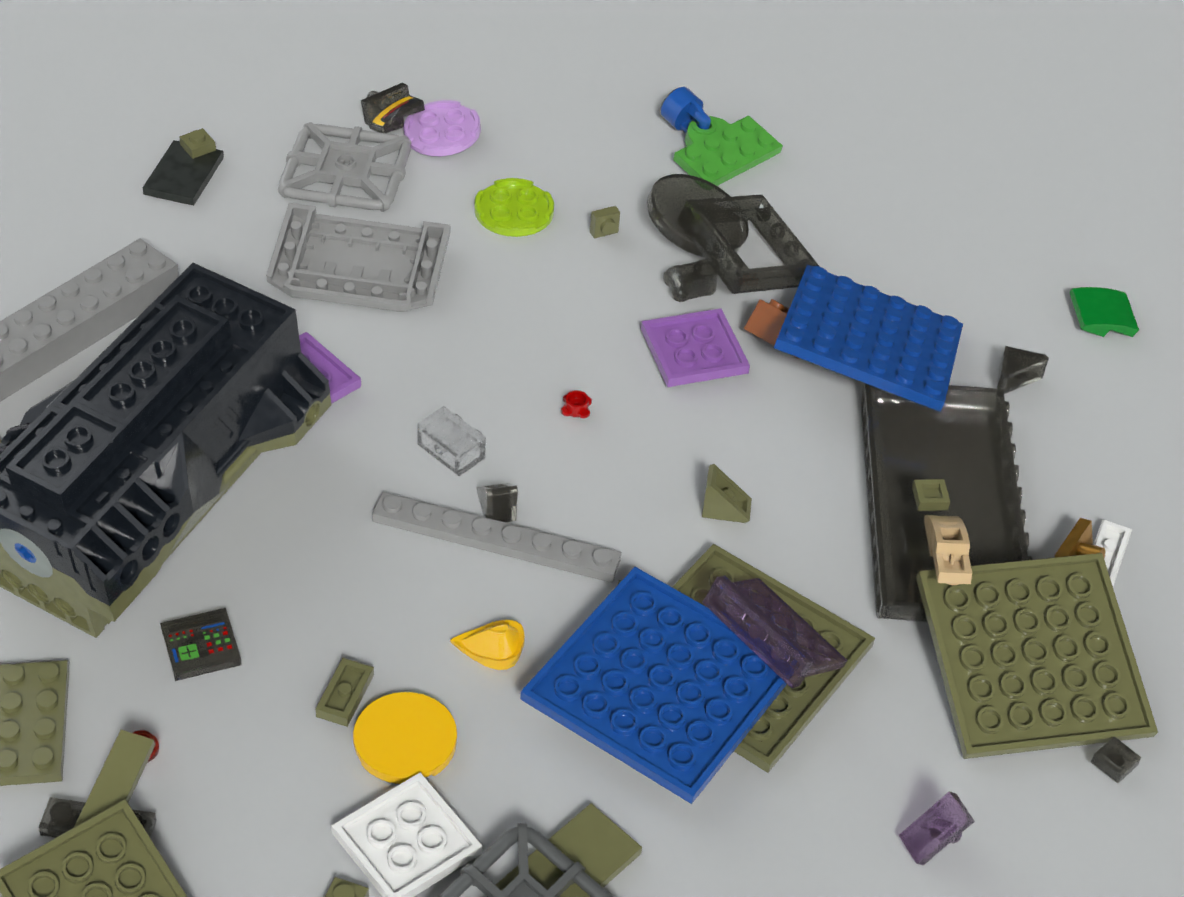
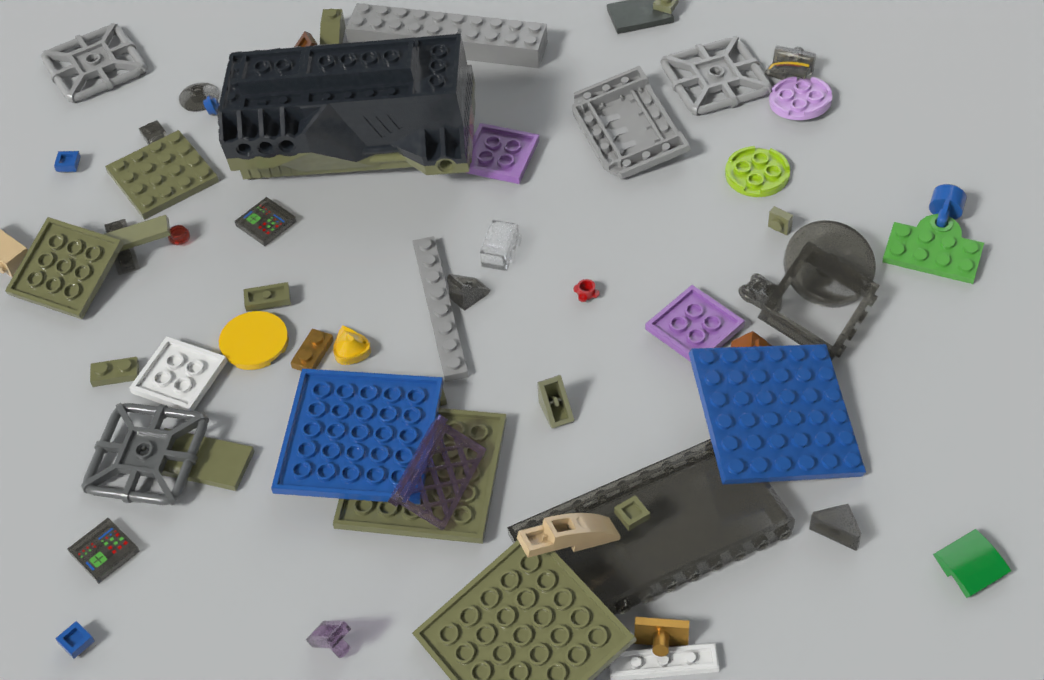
camera: 70 degrees right, 5 degrees up
(471, 685) = (312, 350): none -> pearl gold plate

